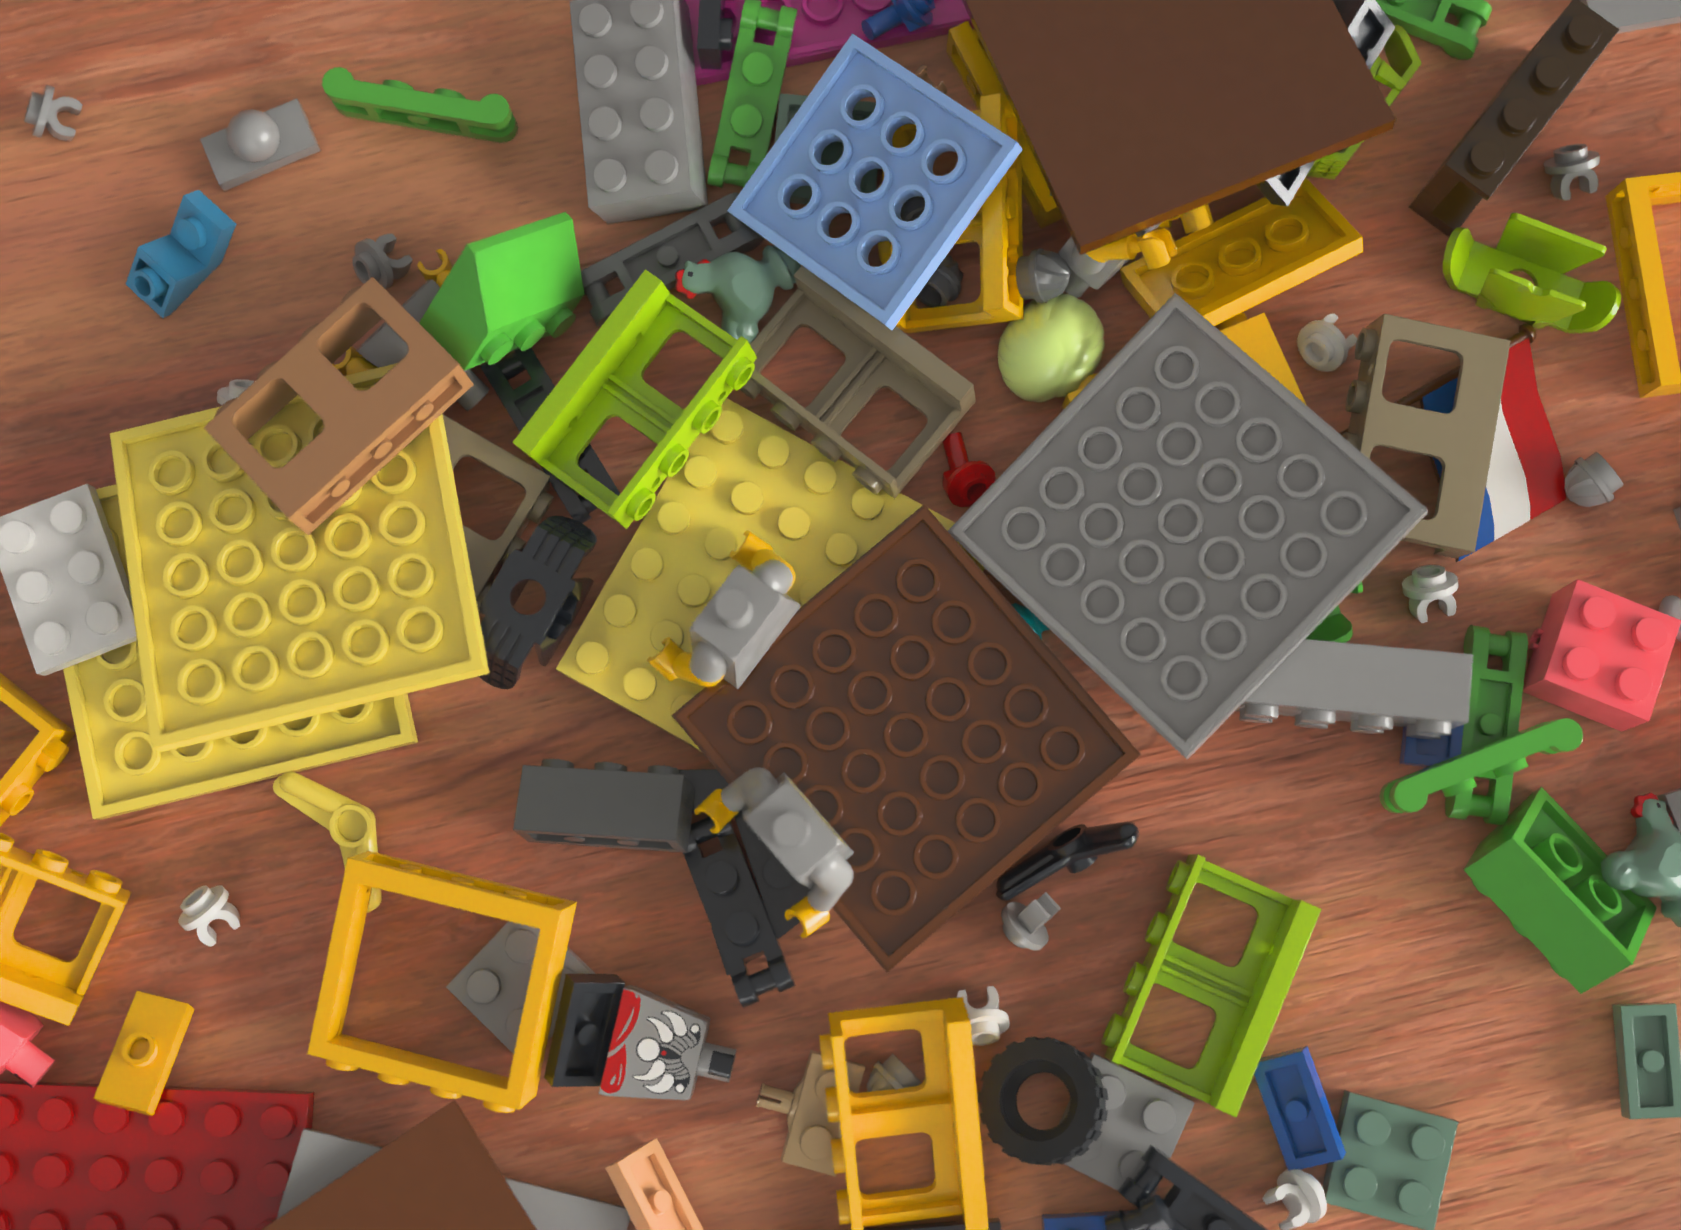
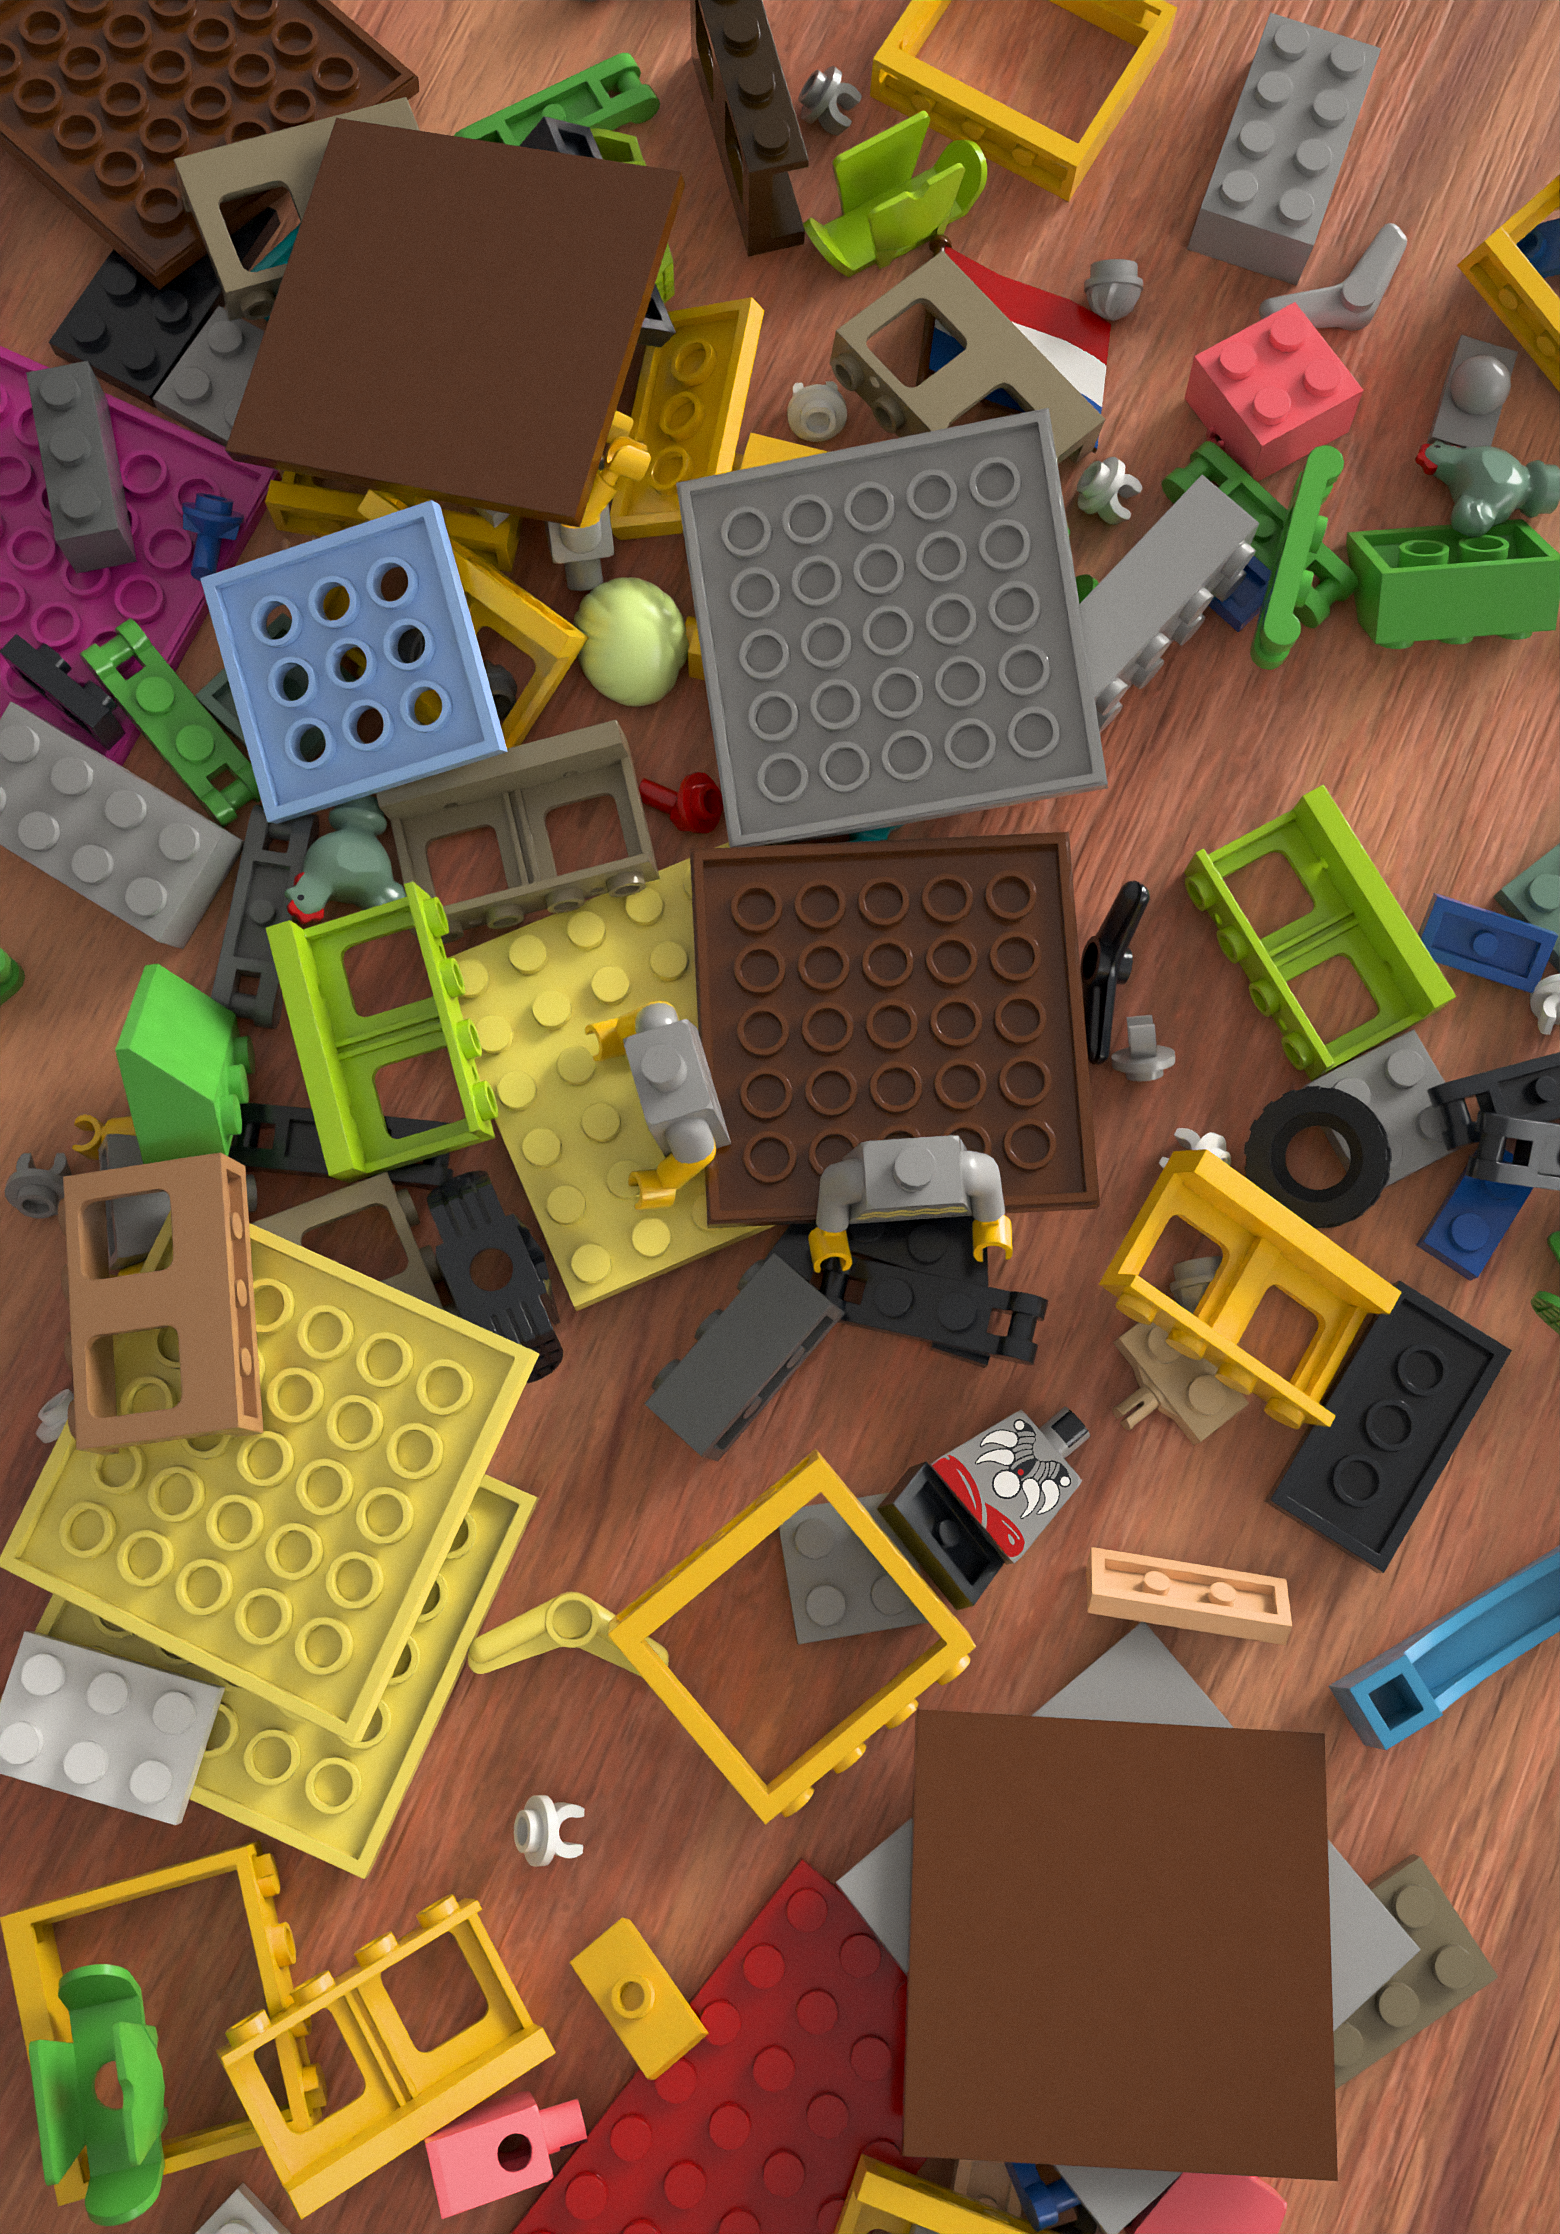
camera: 60 degrees left, 5 degrees down
(1042, 275) = (563, 588): dark grey plate -> none

